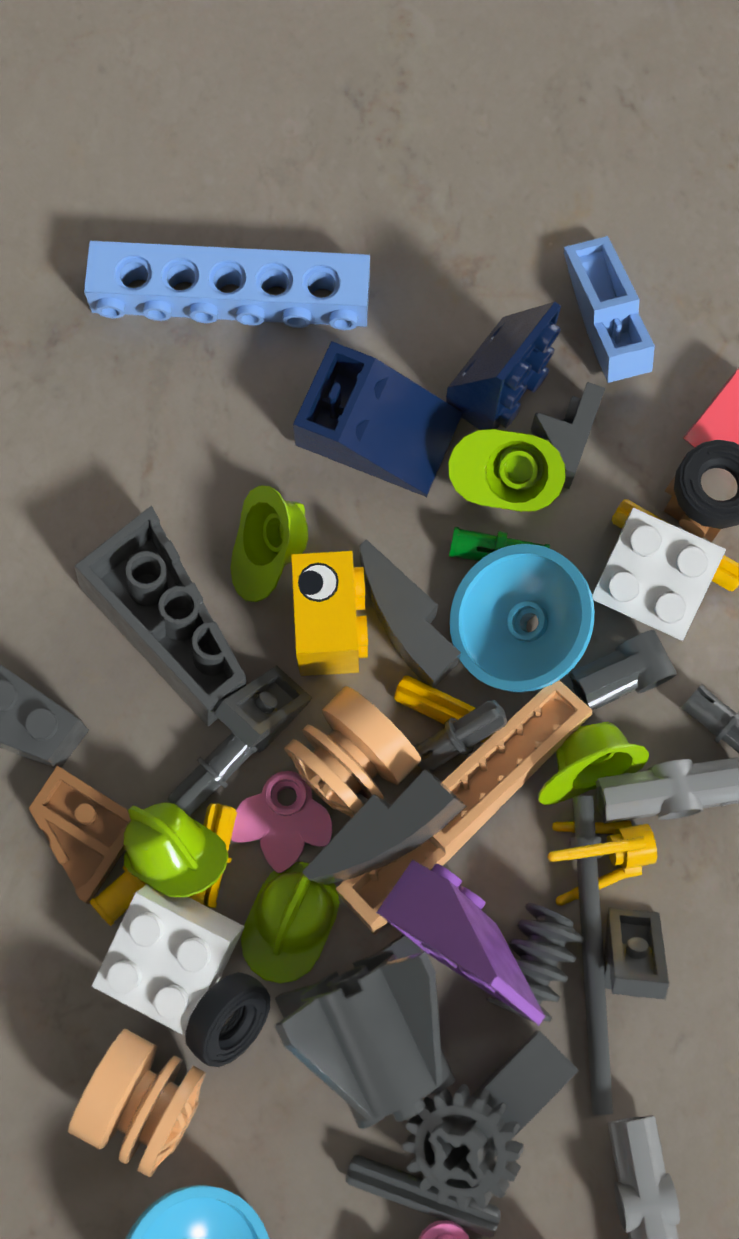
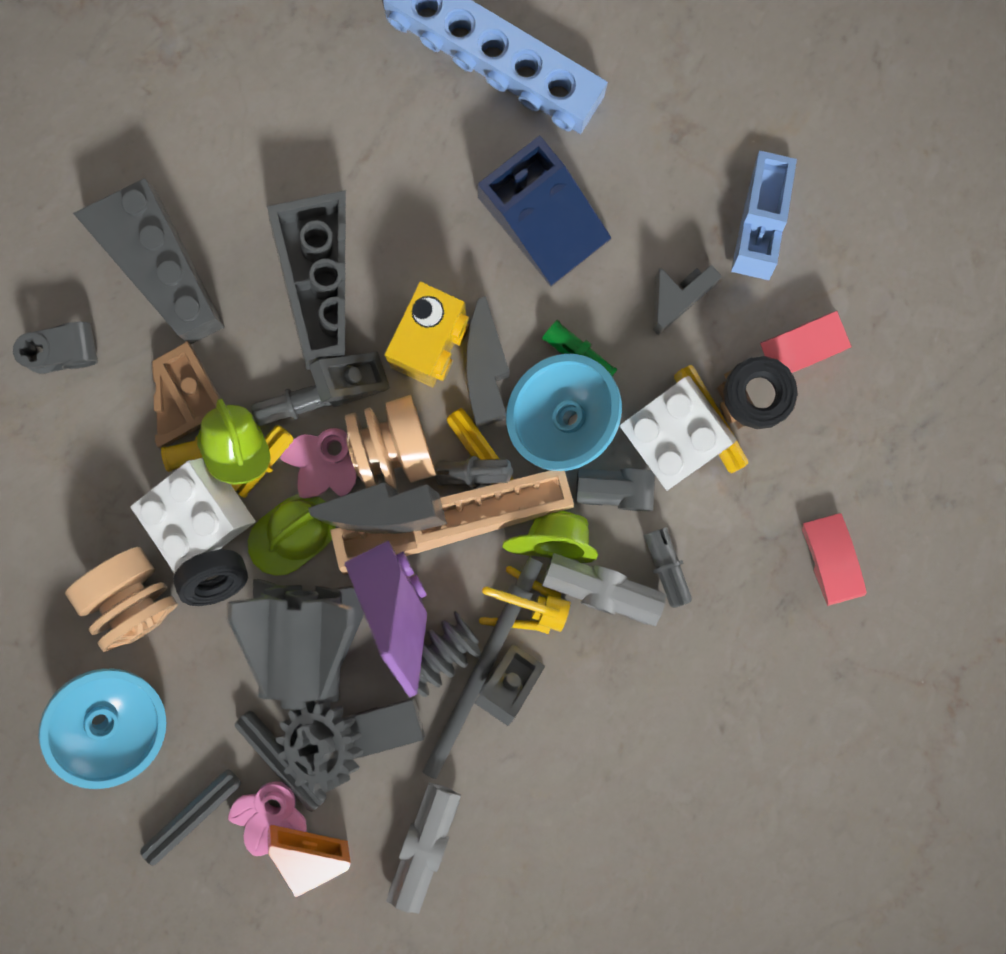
camera: 25 degrees right, 10 degrees up
(265, 540) = (419, 257): lime piece -> none
(506, 367) = (656, 223): dark blue slope -> none
(507, 470) = (615, 299): lime piece -> none

